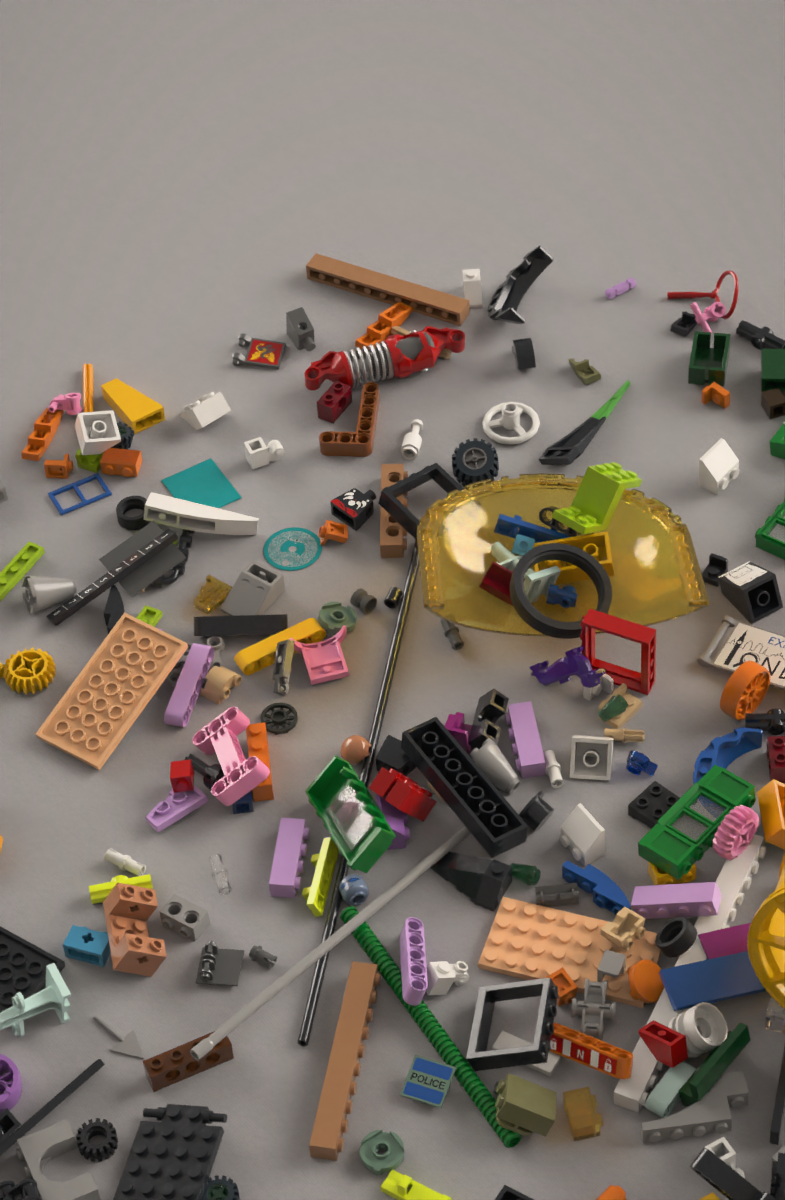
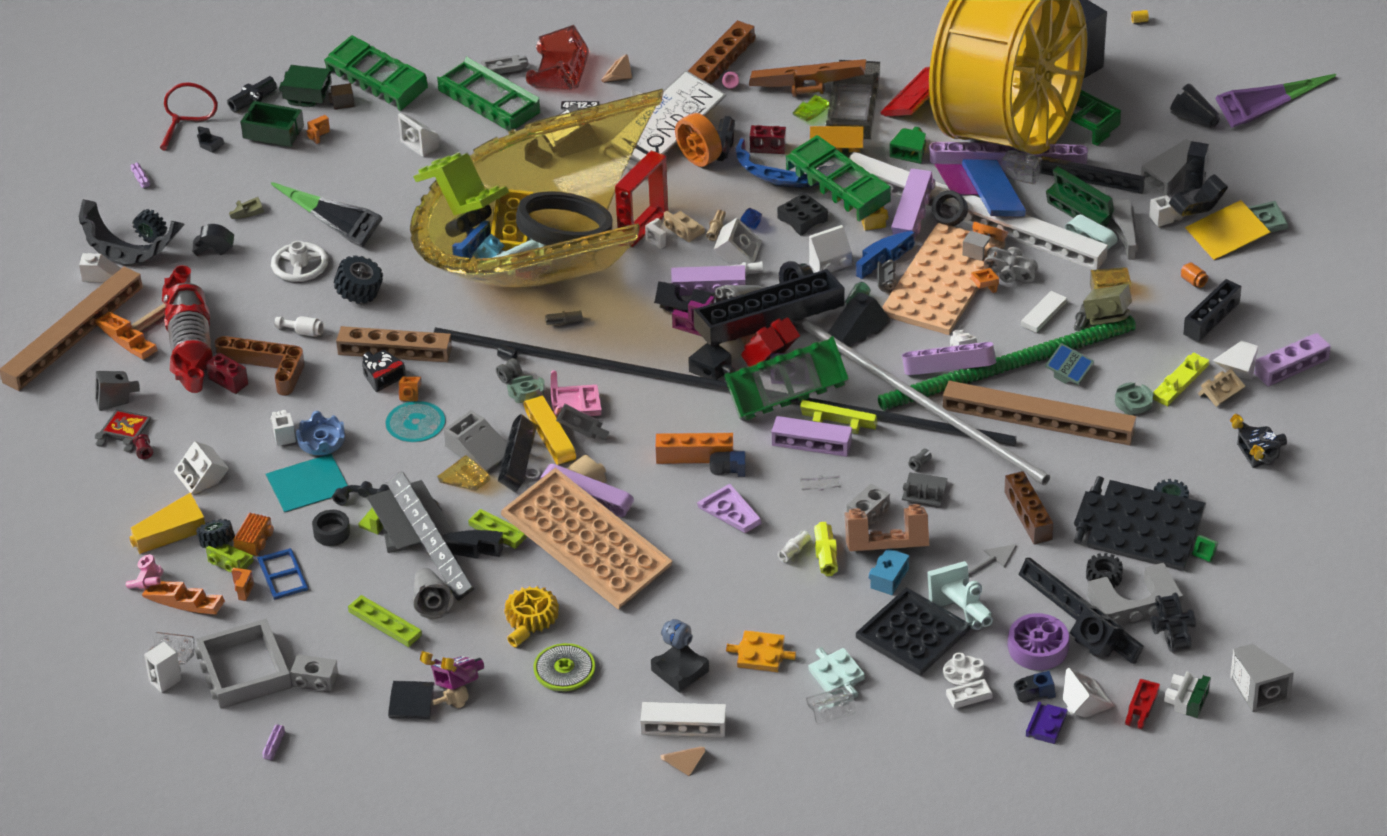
camera: 85 degrees left, 5 degrees down
(87, 388) = (132, 561): light orange axle -> none
(96, 431) = (222, 534): white slope -> none
(182, 776) = (705, 495): red brick -> none
(197, 517) = (361, 475): white slope -> none
(210, 773) = (707, 476): black piece -> none
(232, 368) = (143, 446): none -> dark red bush
(239, 773) = (695, 454): bright pink beam -> none
(252, 474) = (318, 427): none -> medium blue plate
(279, 718) = (637, 438): pearl dark grey wheel -> none
(354, 890) = (858, 394): sand blue head -> none
(355, 749) = (695, 385): nougat hair -> none
(398, 510) = (437, 313): black window -> none
(518, 1056) = (1024, 330): black window -> none
(533, 305) = (149, 225): none -> black wheel
(563, 668) = (643, 244): dark purple animal -> none
(591, 1052) = (1057, 265): beam -> none
(613, 707) = (692, 219): clear green cone -> none
(624, 928) = (937, 234): tan cylinder -> none
(664, 1043) = (1062, 217): red slope -> none
(703, 1028) = (1047, 203): white wheel -> none
(710, 314) = (209, 120): bright pink piece -> none
(735, 832) = (861, 150): bright pink gear -> none

